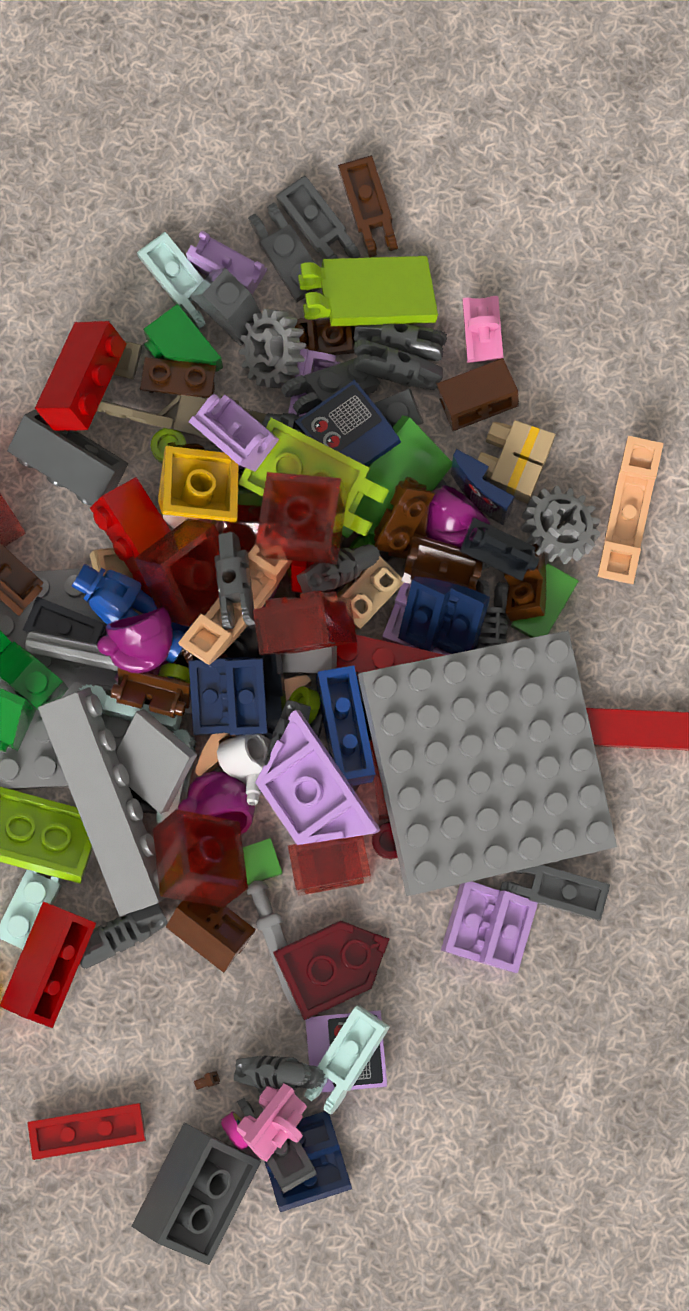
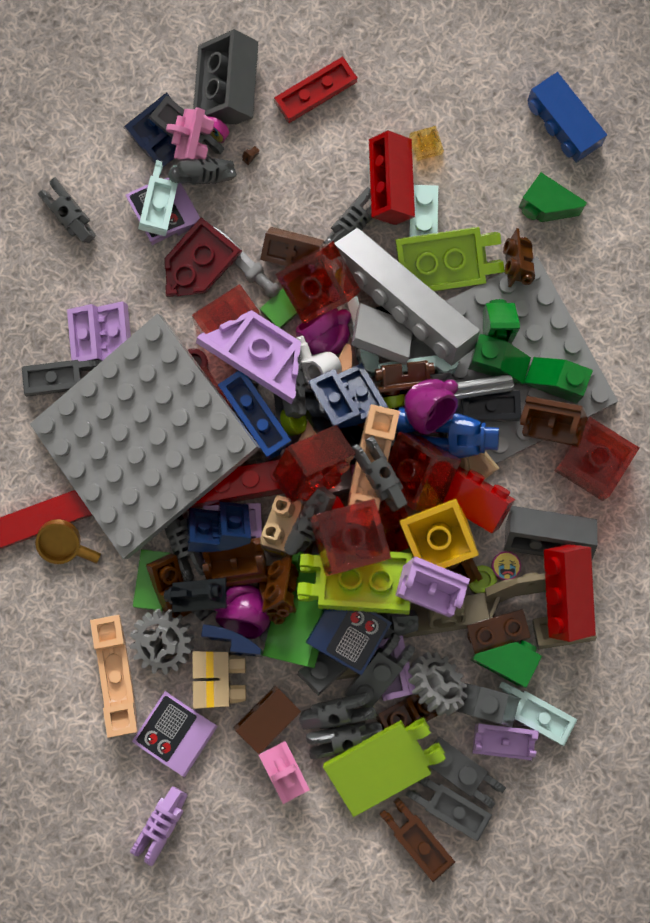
camera: 150 degrees right, 0 degrees up
(134, 449) = (506, 565): none -> tile
(464, 1081) = (68, 212): none -> dark grey hinge
(586, 422) = (174, 734): none -> slope
(632, 686) = (60, 542): none -> pearl gold piece
(640, 334) = (160, 825): none -> lavender hinge

